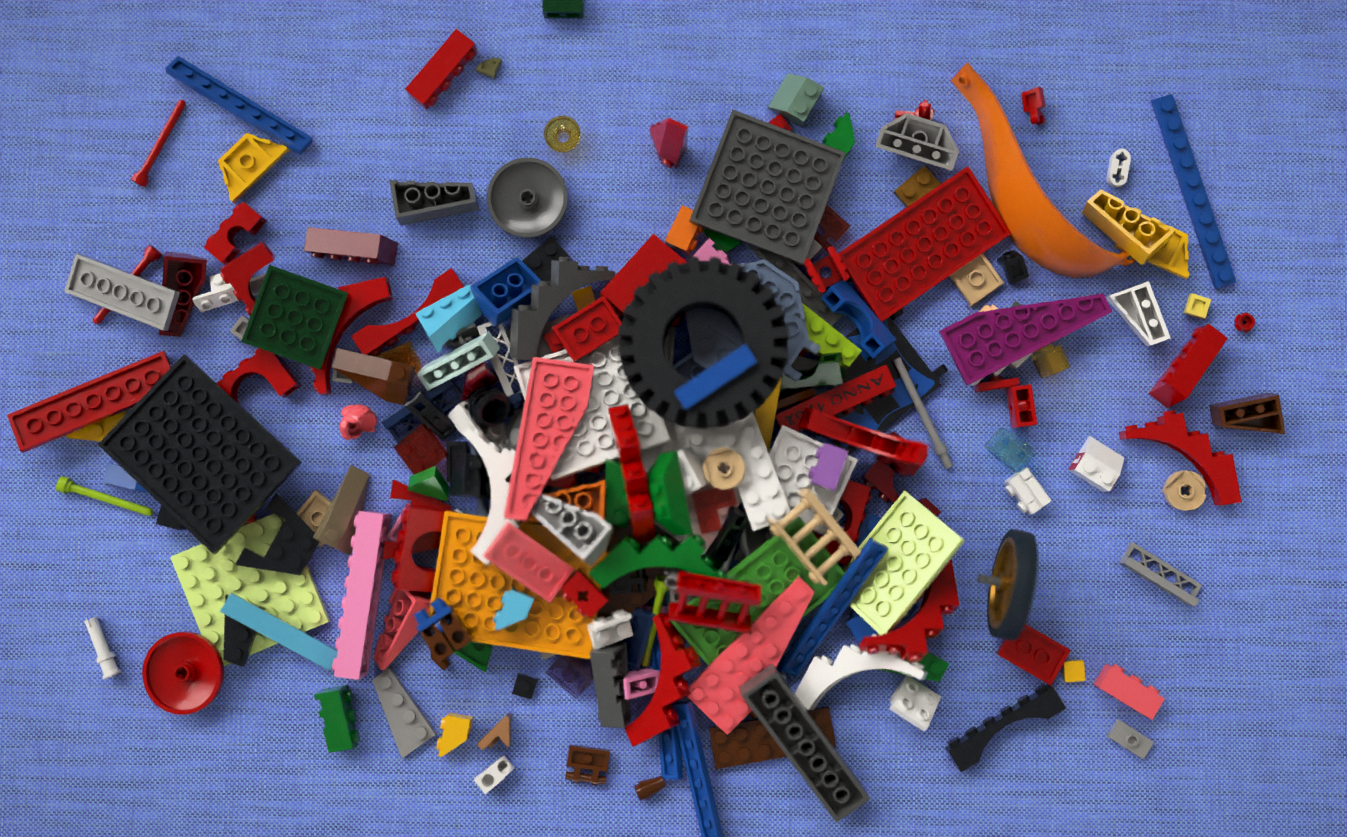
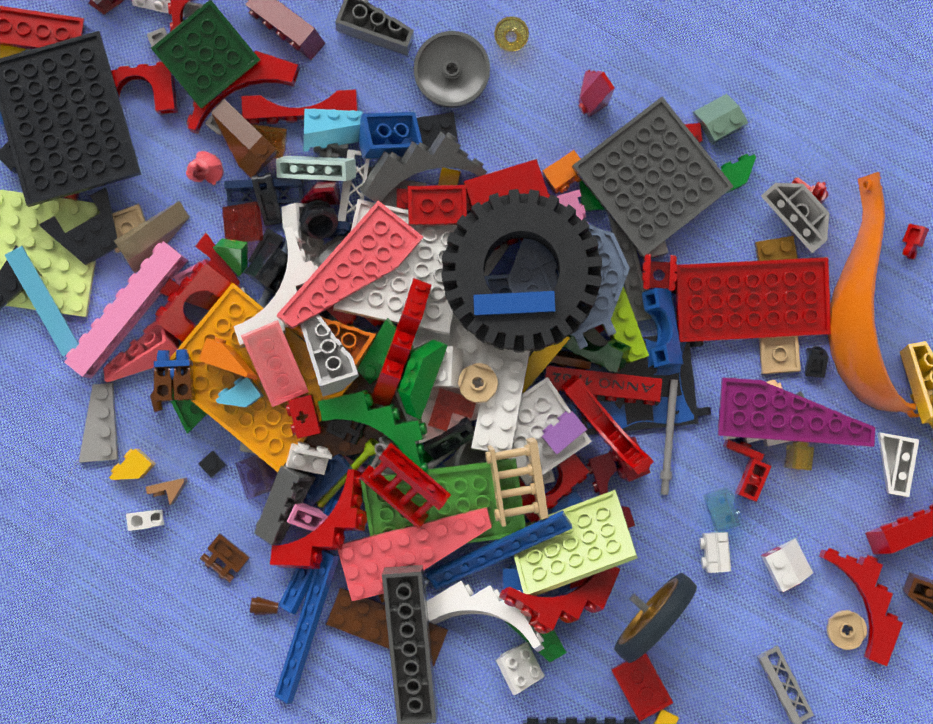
camera: 30 degrees right, 0 degrees up
(338, 718) = (47, 399): green wedge -> none
(479, 583) = (225, 357): none -> orange slope
(832, 225) = (687, 238): clear red plate -> none

